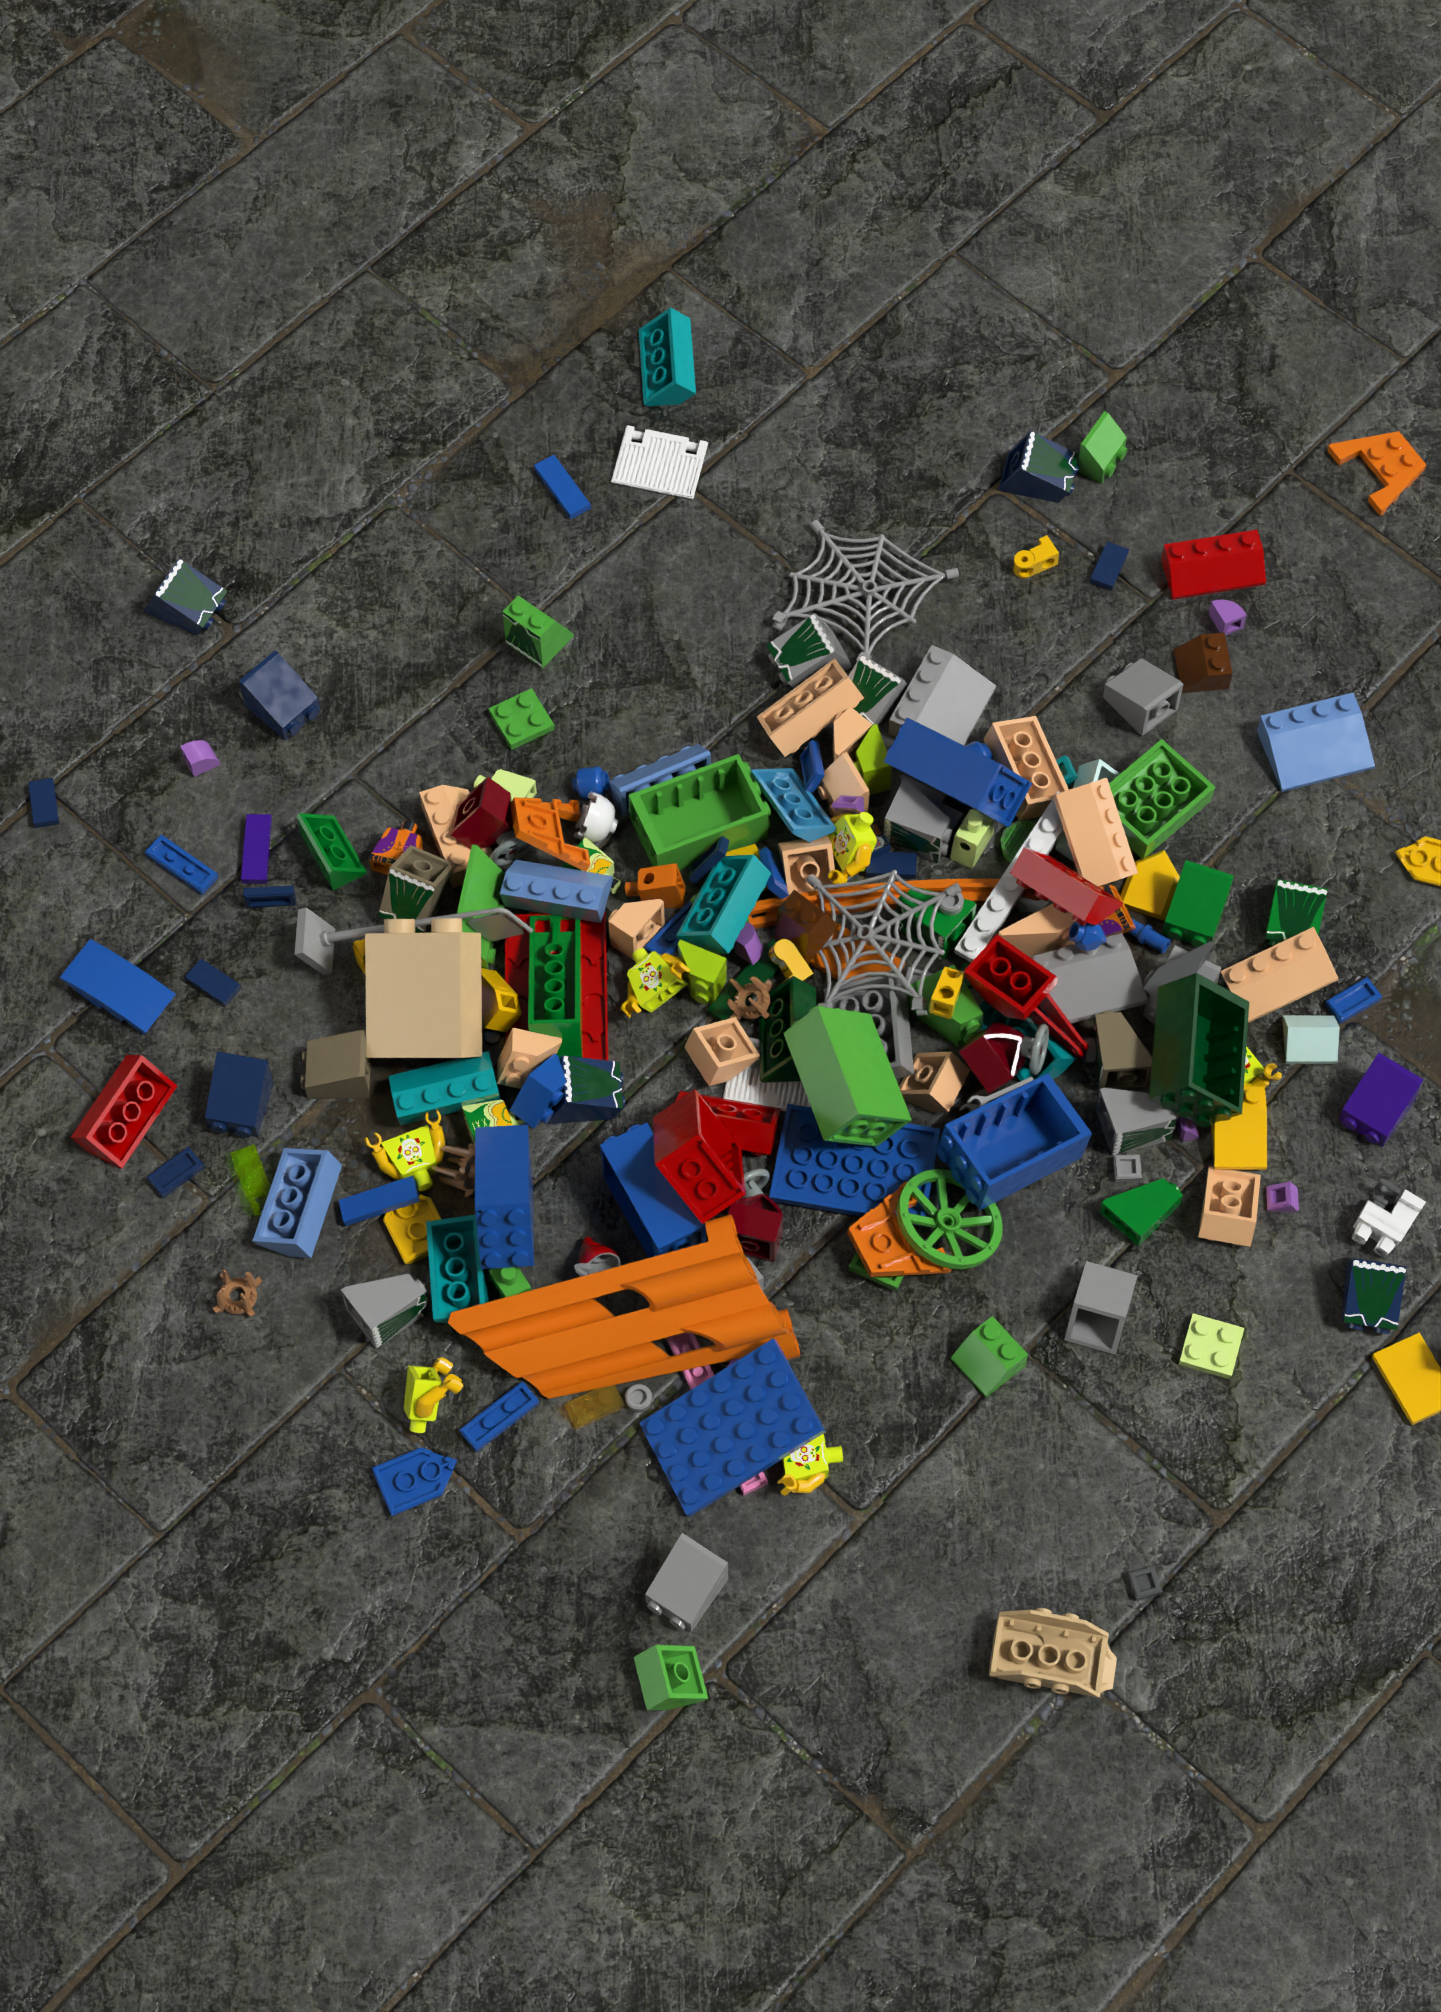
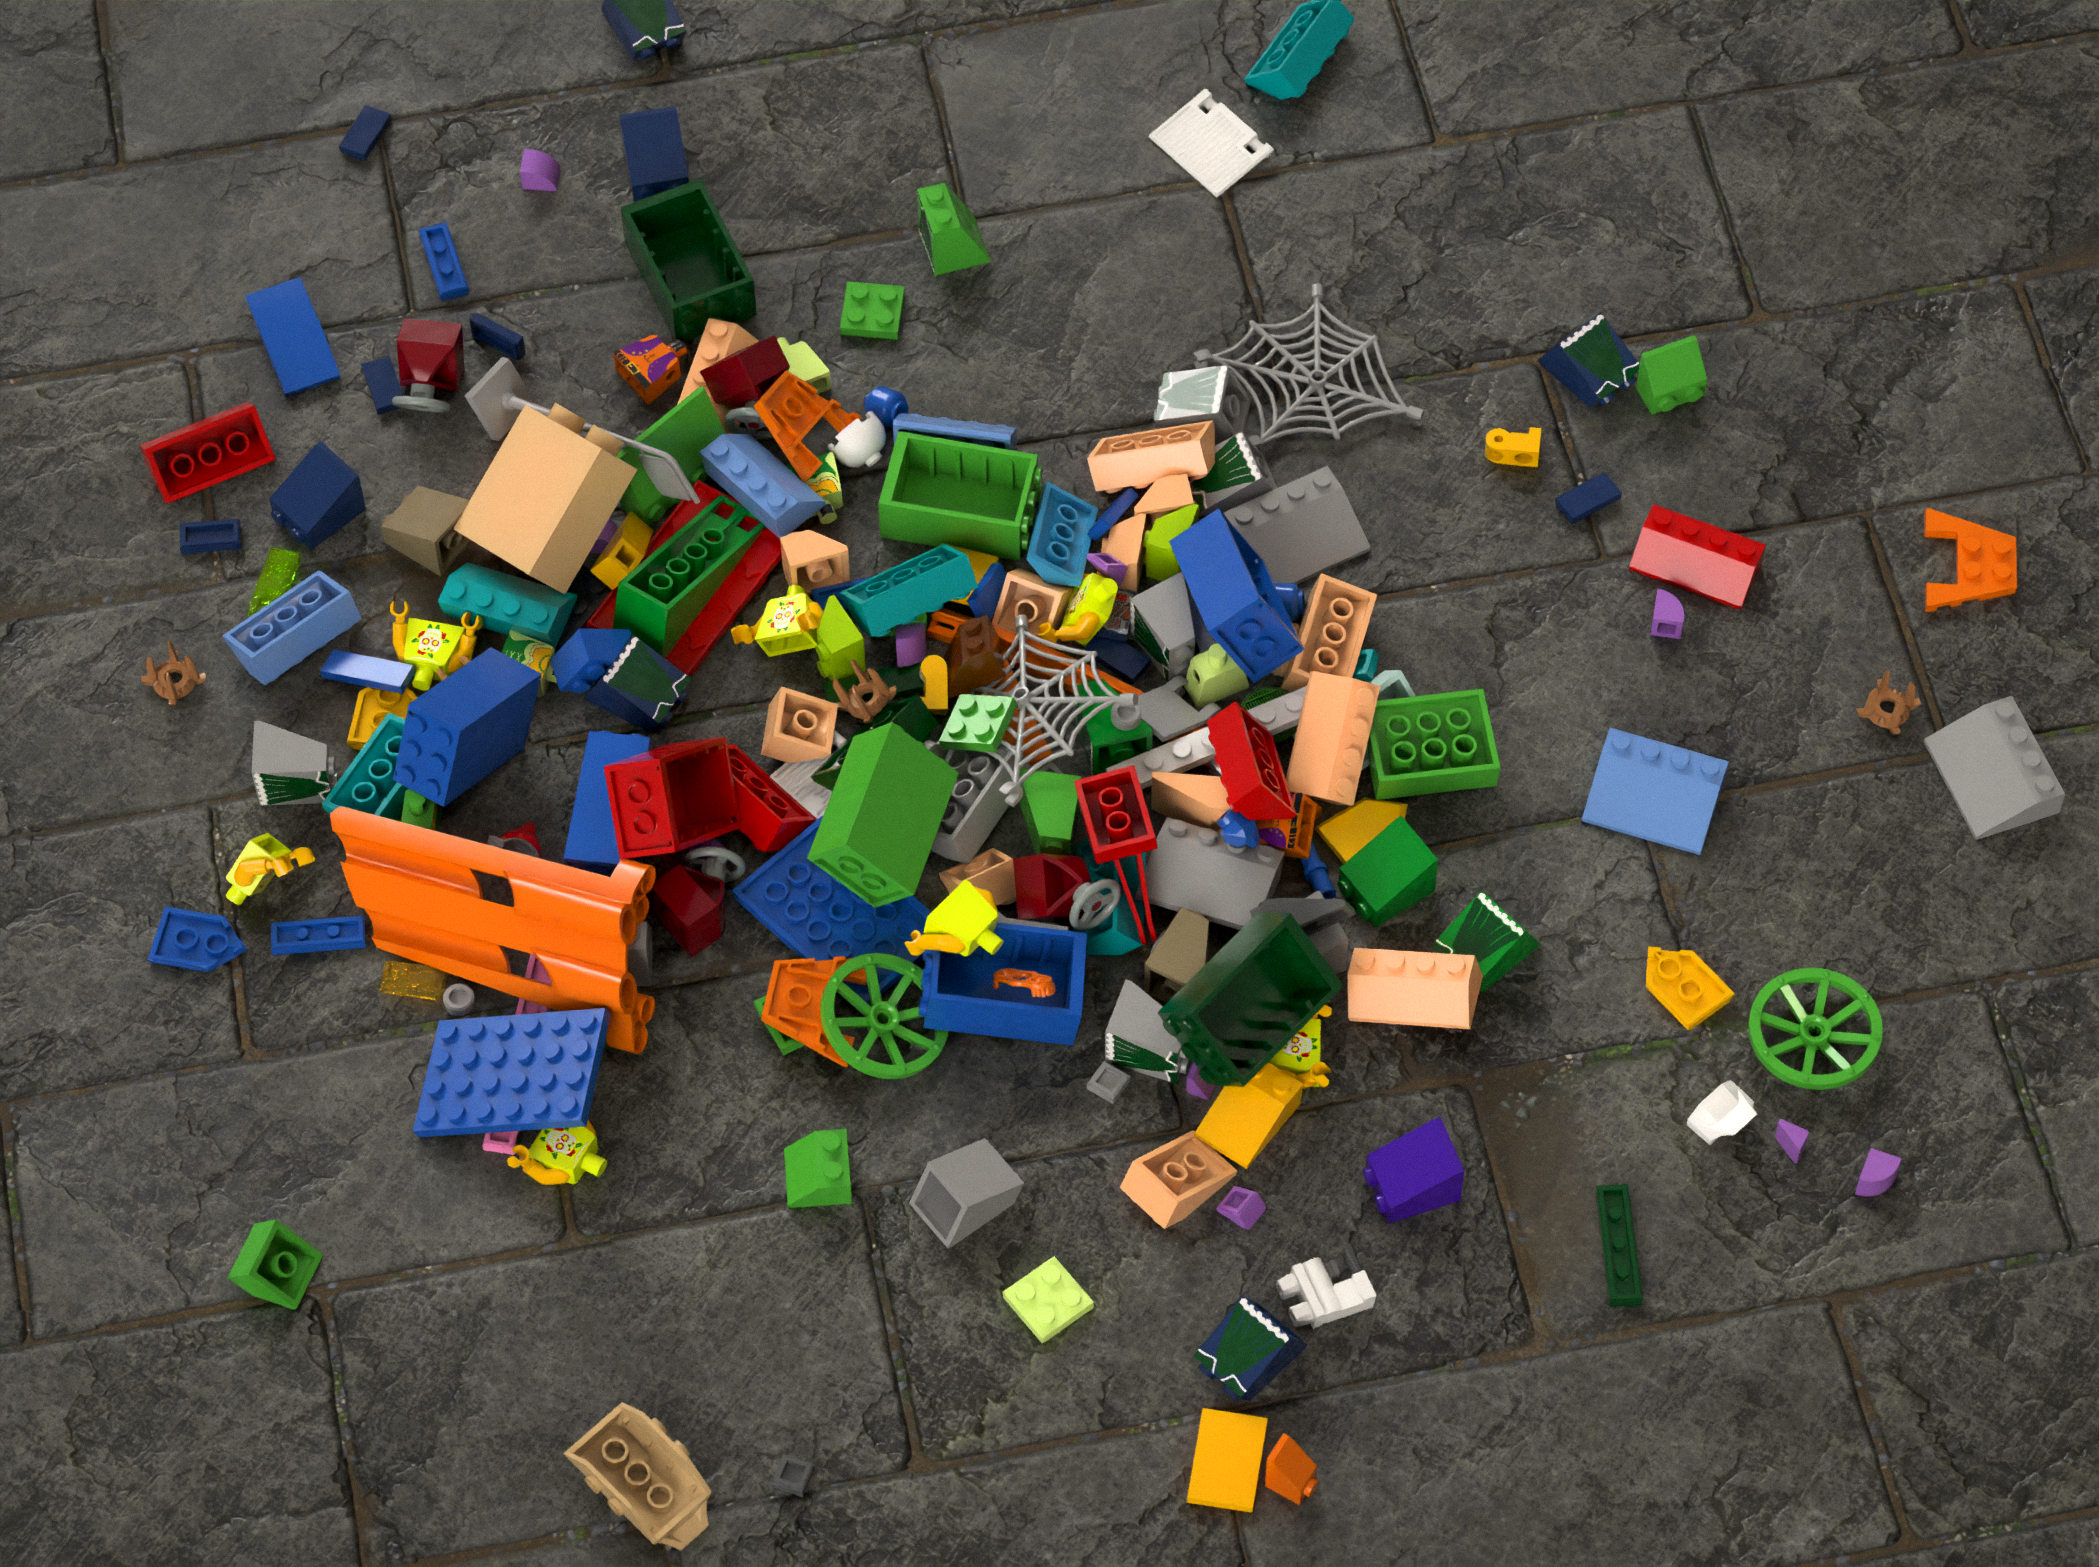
camera: 35 degrees right, 5 degrees down
(241, 944) = (429, 360): none -> dark red piece
(256, 849) = (523, 287): dark purple tile -> none
(330, 849) = (589, 325): green slope -> none
(368, 759) = (688, 260): none -> dark green container
(415, 886) = (631, 398): dark tan slope -> none
(523, 1054) = (603, 609): light nougat slope -> none
(562, 486) = (1095, 113): blue tile -> none
(661, 883) = (868, 540): orange torso -> none
(687, 1583) = (356, 1190): light grey slope -> none
(708, 859) = (933, 541): dark blue tile -> none
(849, 970) = (978, 722): none -> plate
(946, 993) = (1045, 794): yellow leg -> none
(969, 1120) = (960, 924): none -> neon yellow torso
(972, 882) = (1169, 713): none -> light grey flag
(1047, 1128) = (1040, 984): none -> orange piece
(1142, 1209) = (1088, 1127): green slope -> none
(1143, 695) = (1509, 641): light grey slope -> none
(1204, 663) = (1603, 648): reddish brown slope -> none
(1310, 1039) = (1400, 1073): light aqua slope -> none
(1353, 1000) = (1479, 1064): blue tile -> none
(1402, 591) = (1902, 703): none -> medium nougat piece

